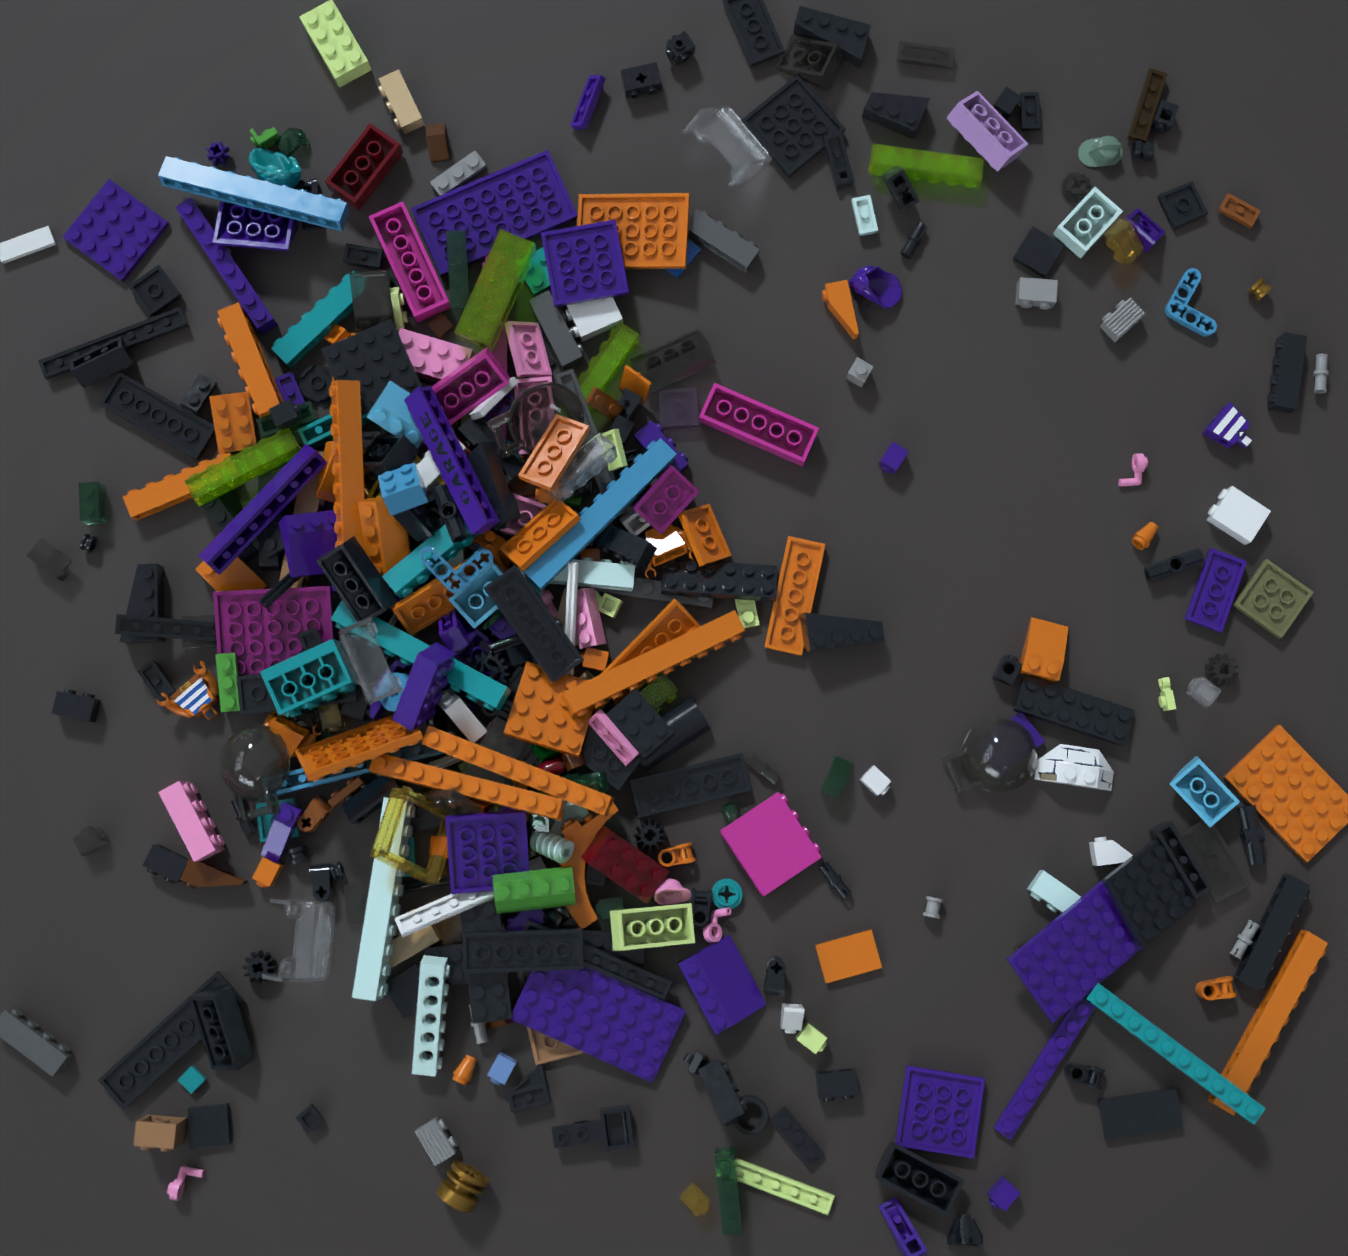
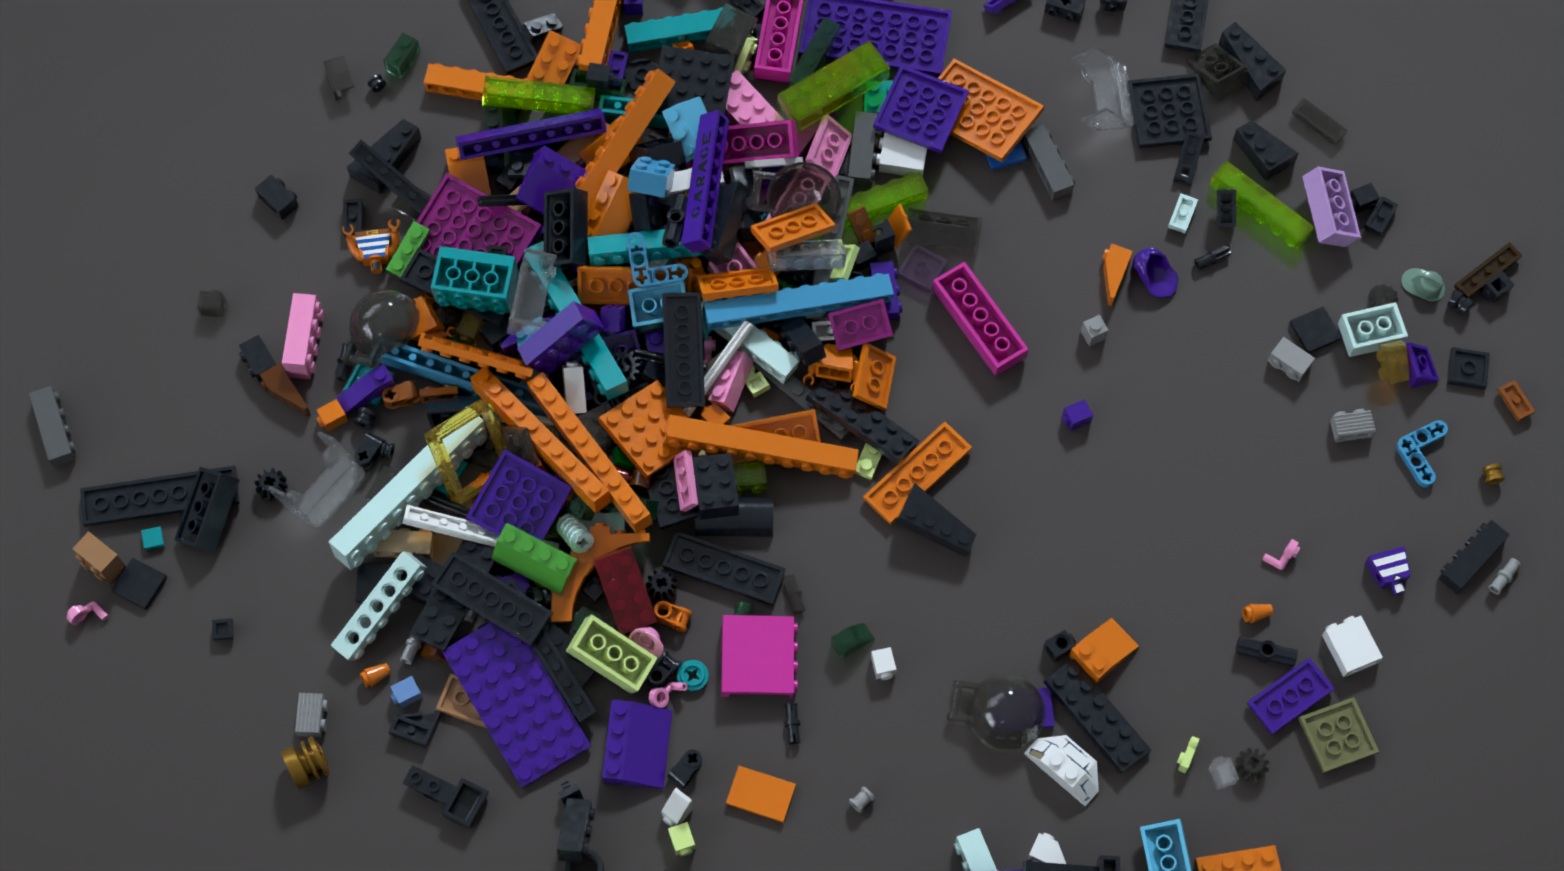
camera: 35 degrees right, 15 degrees down
(440, 325) = (771, 90): reddish brown tile -> none

